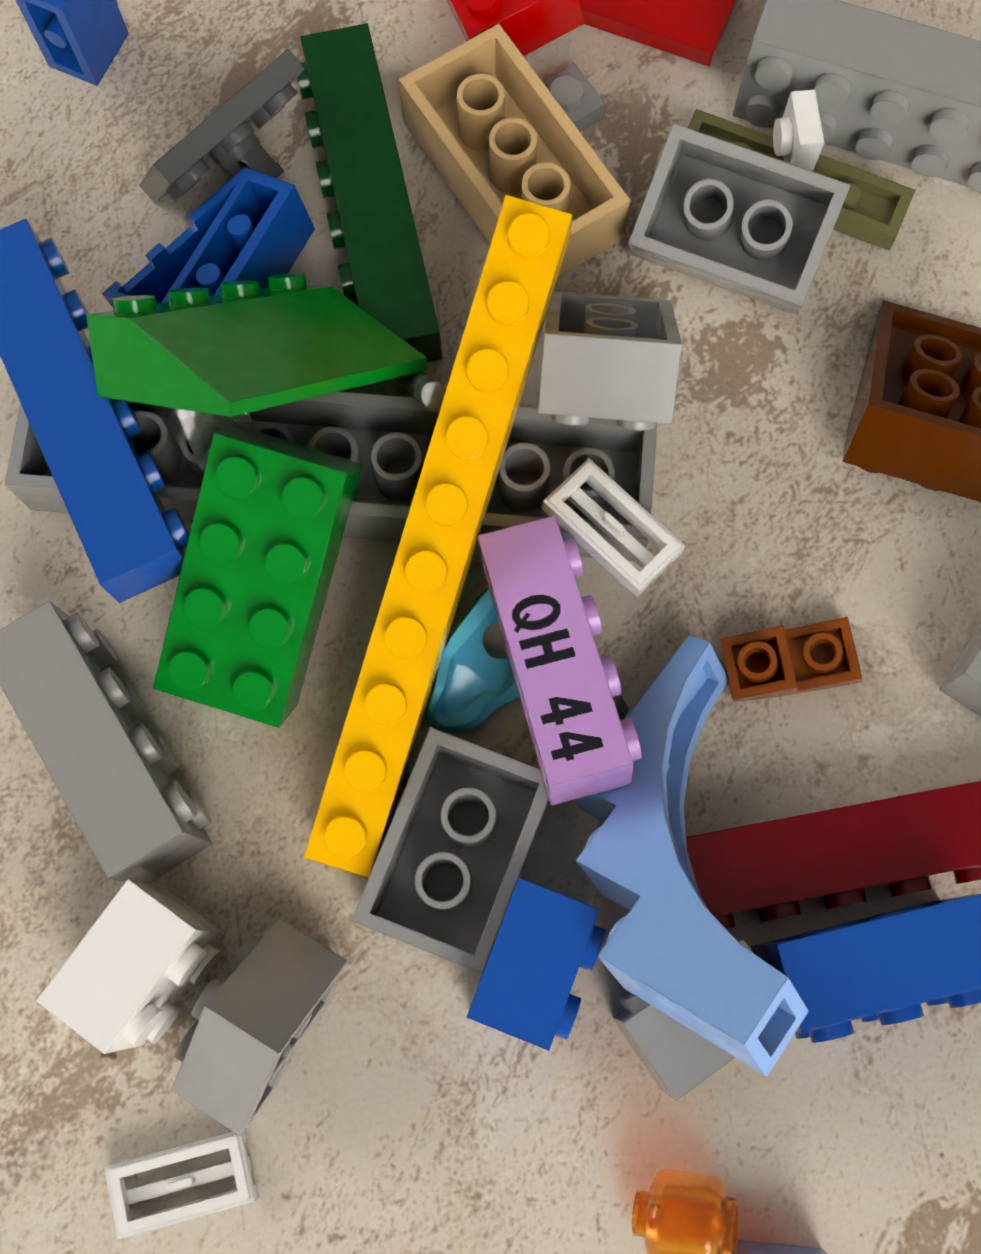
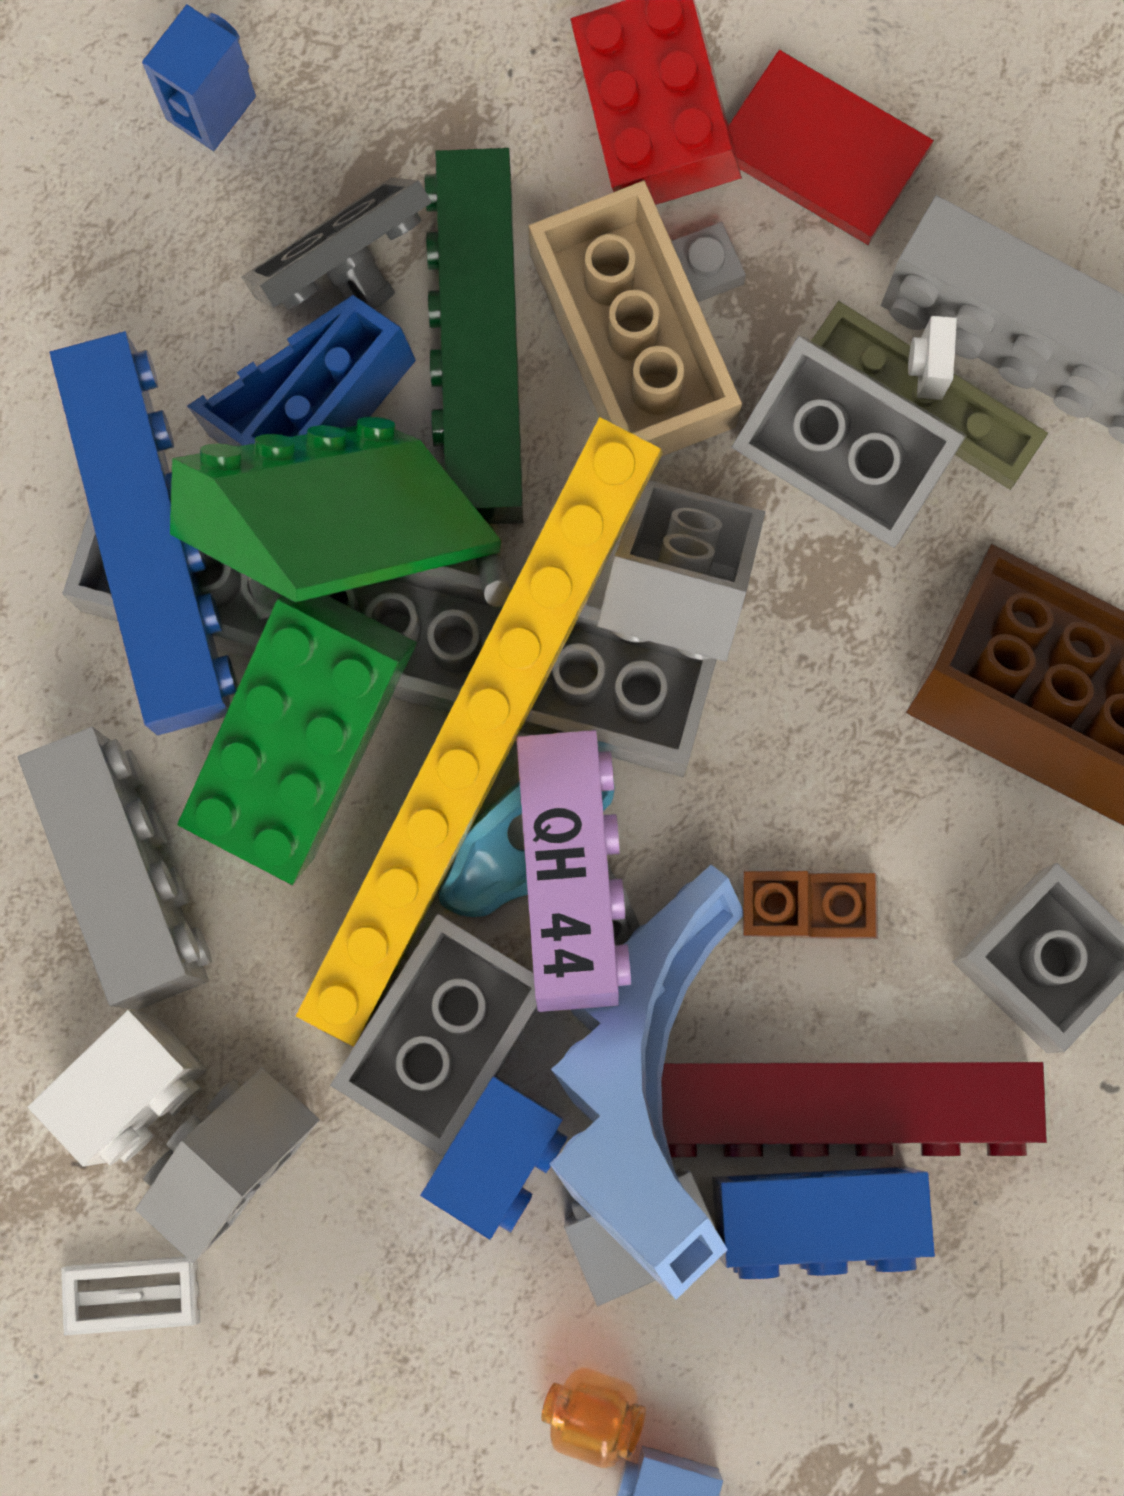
camera: 10 degrees right, 5 degrees up
(595, 544) = (683, 795): white tile -> none

